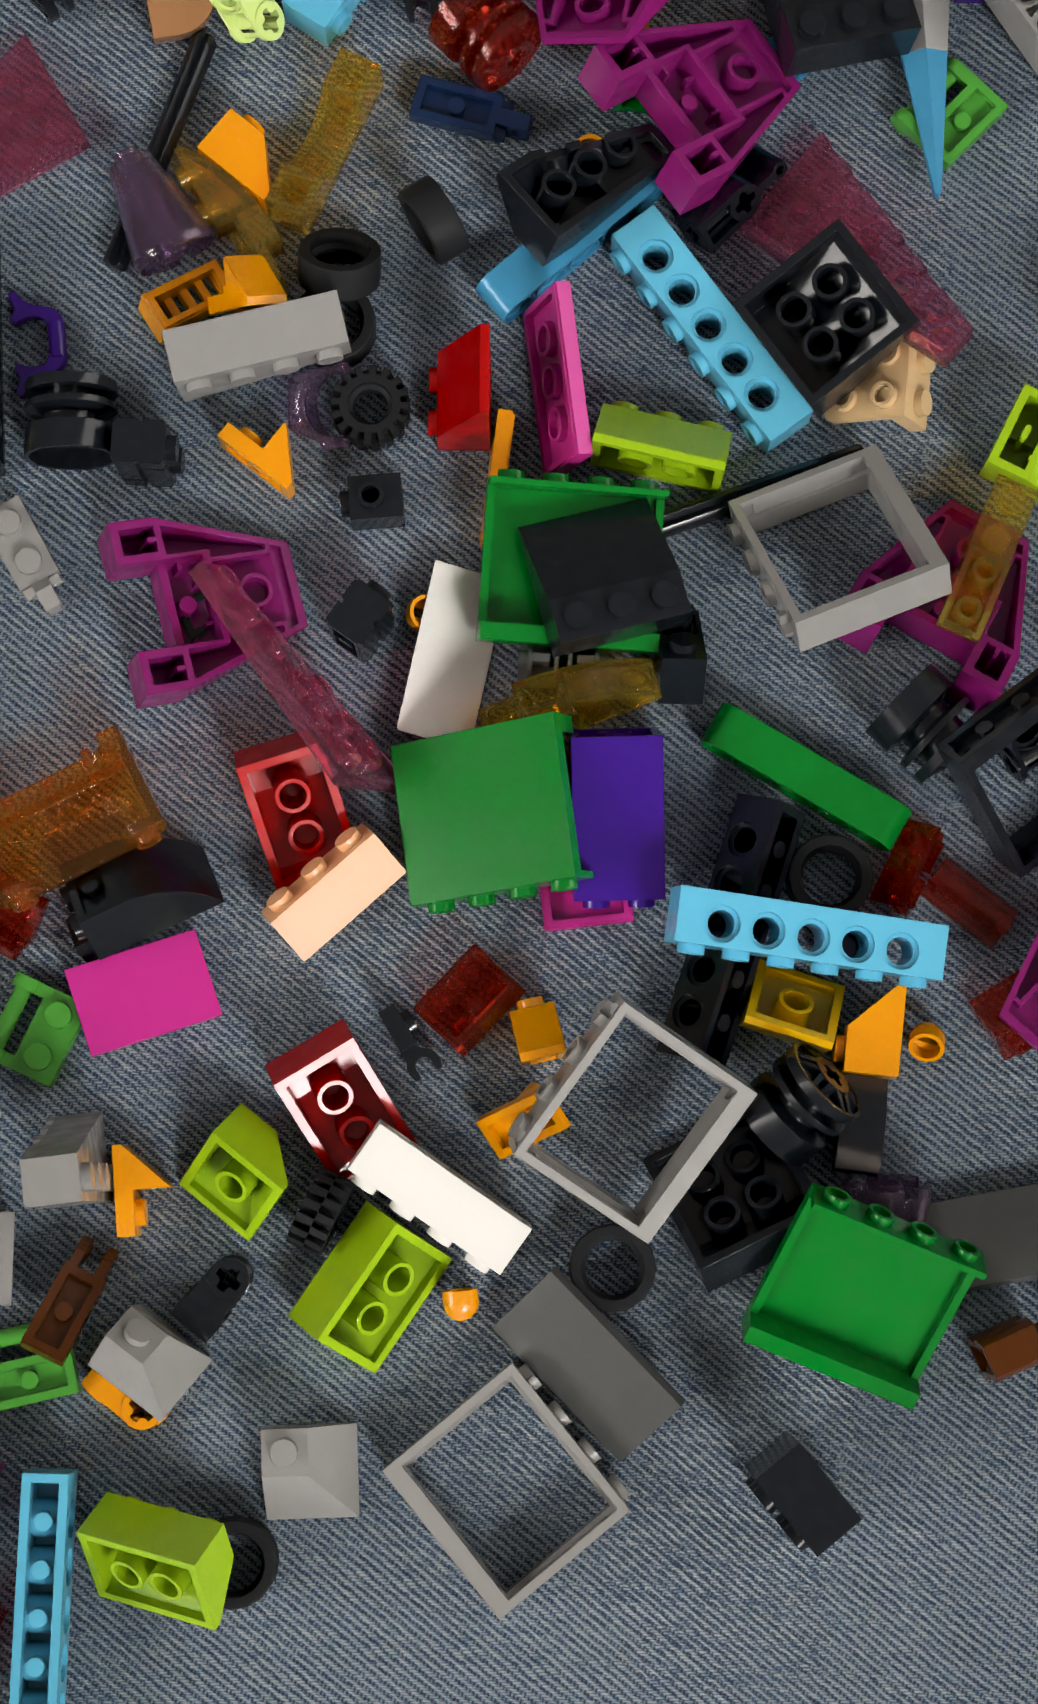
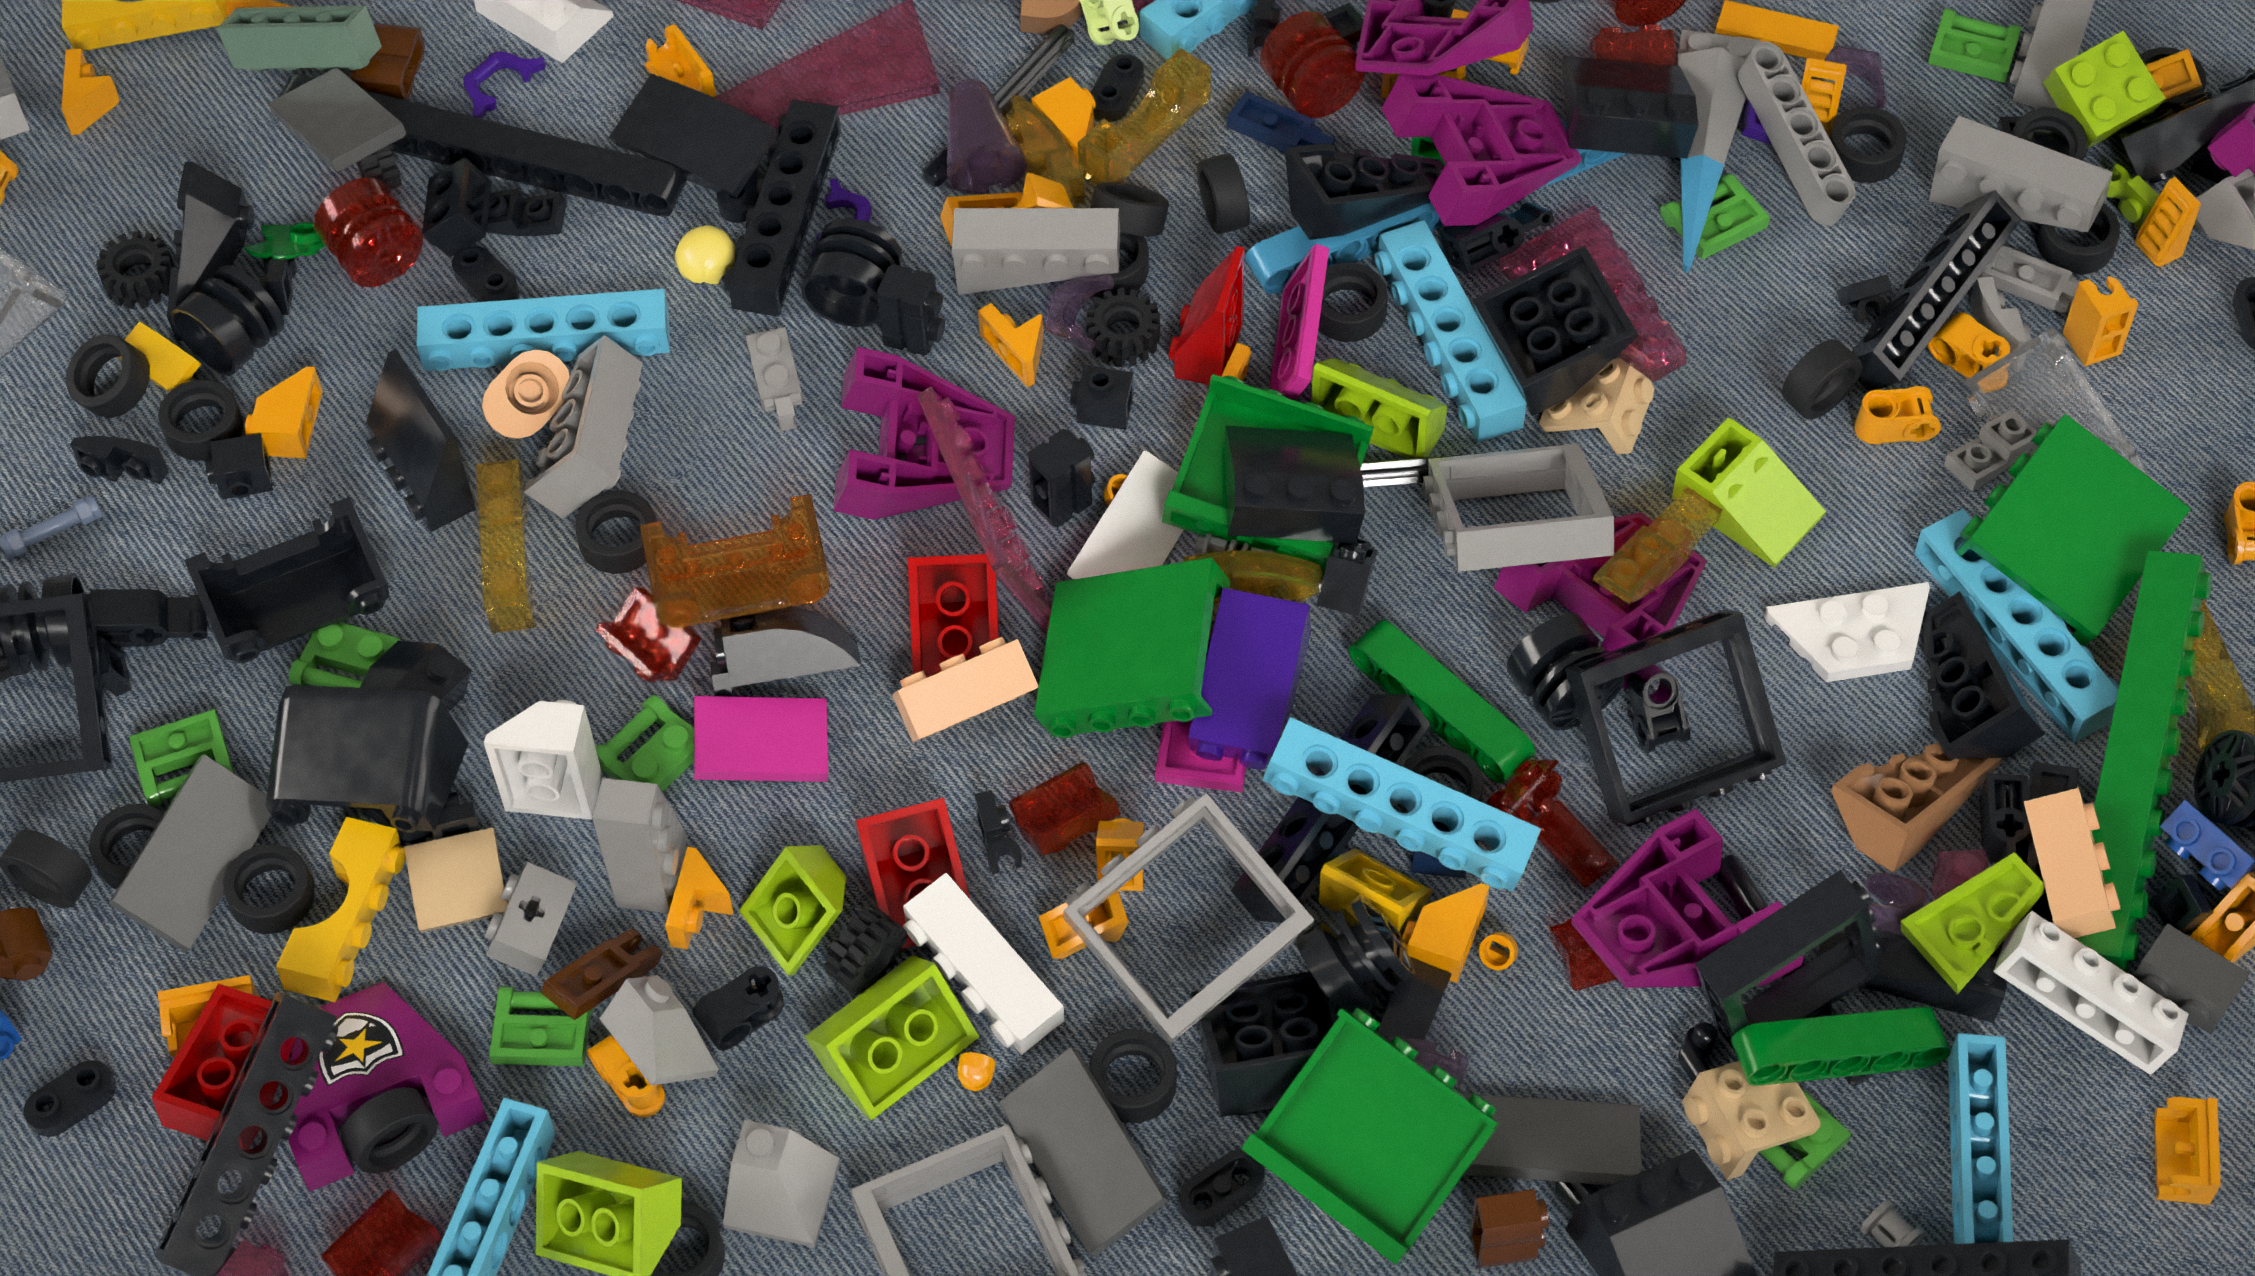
camera: 15 degrees right, 25 degrees down
(280, 94) = (1122, 81): none -> black plate
(618, 292) = (1355, 326): none -> black tyre
(728, 1363) = (1218, 1187): none -> black plate

